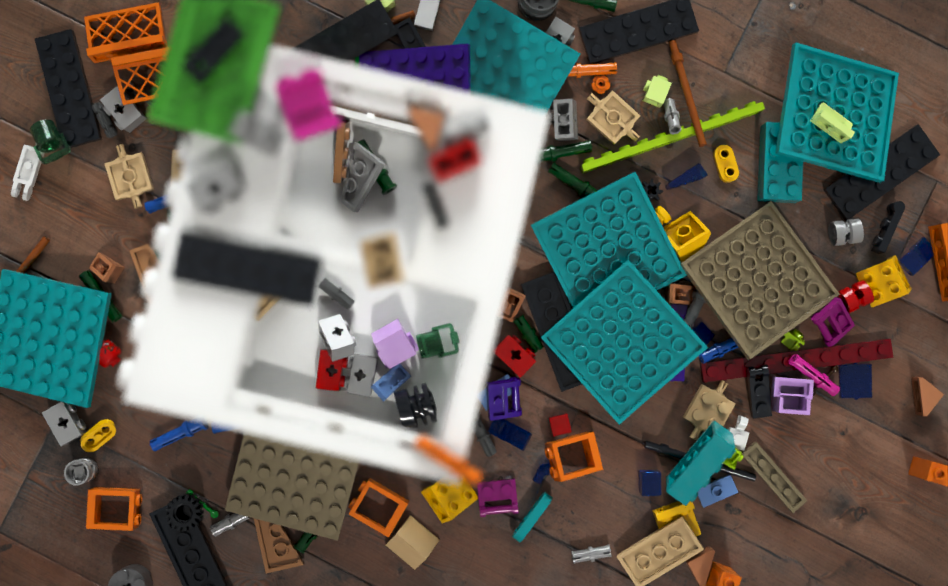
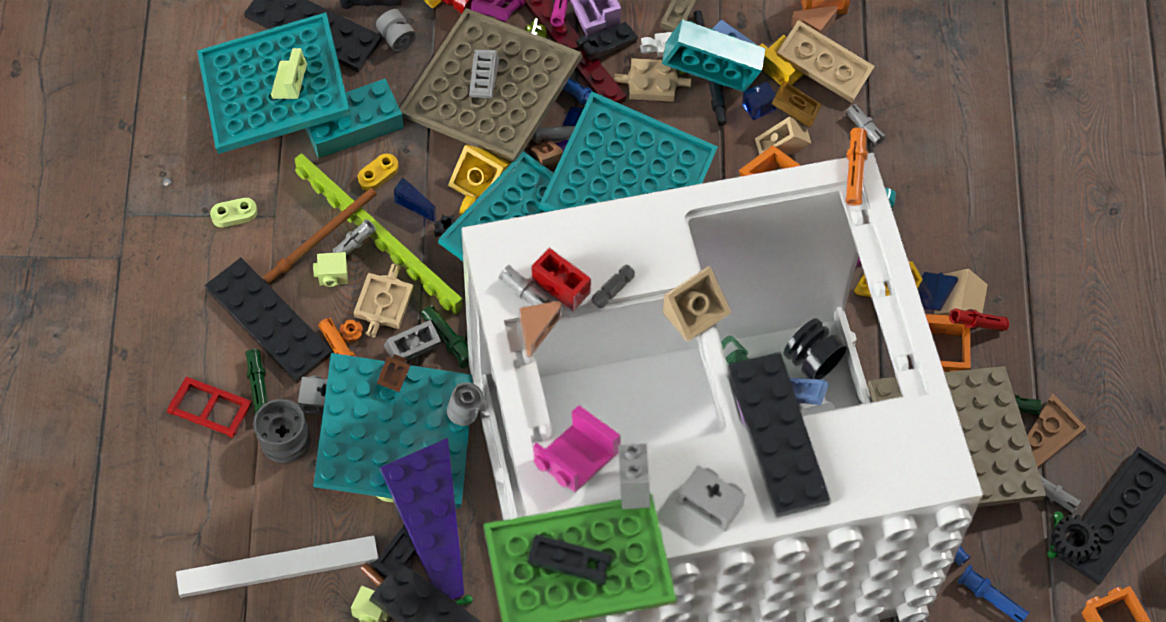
camera: 115 degrees left, 25 degrees down
(381, 542) = (972, 319): none -> red pin
(425, 524) = (935, 290): none -> clear blue piece
(541, 90) = (394, 373): none -> reddish brown bracket
(607, 482) = (786, 136): none -> tan slope
(630, 507) = (796, 104): none -> pearl gold plate
(741, 41) = (233, 212): none -> yellowish green plate
(784, 278) = (484, 59): none -> light grey slope

